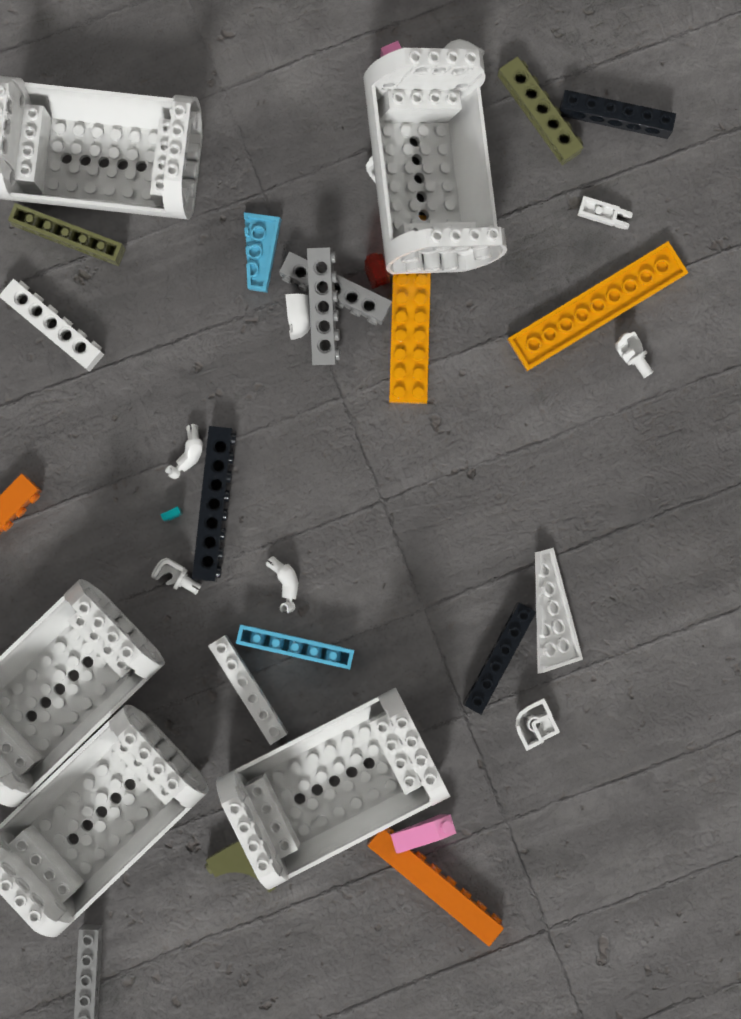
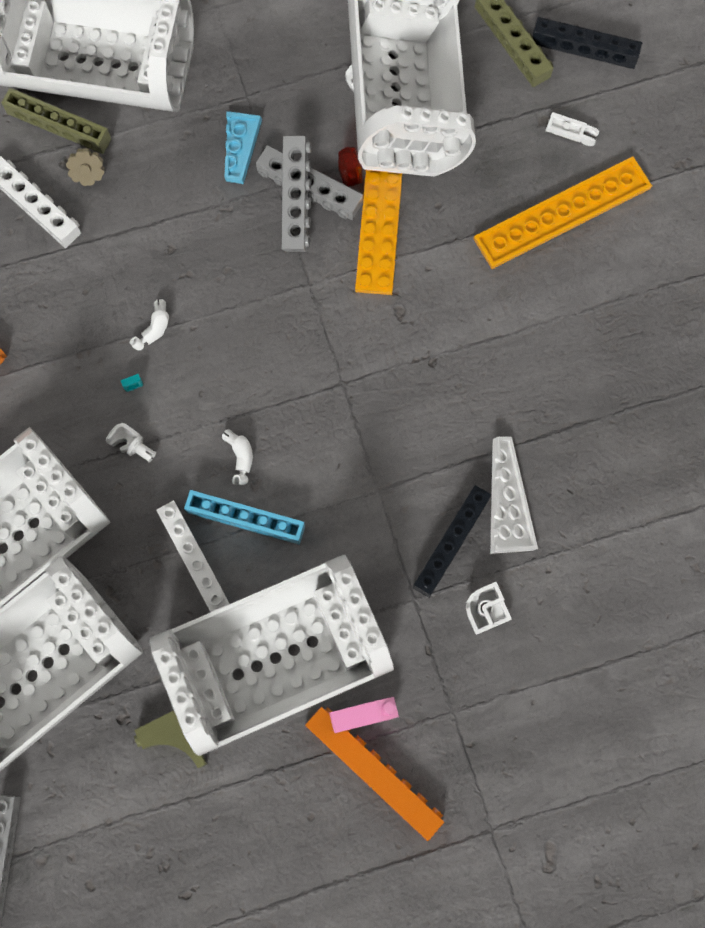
camera: 10 degrees right, 10 degrees down
(102, 285) = (85, 167): none -> dark tan plant
(215, 436) = (182, 311): black brick -> none
(298, 314) = (271, 202): white brick -> none
(632, 352) = (595, 255): white piece -> none

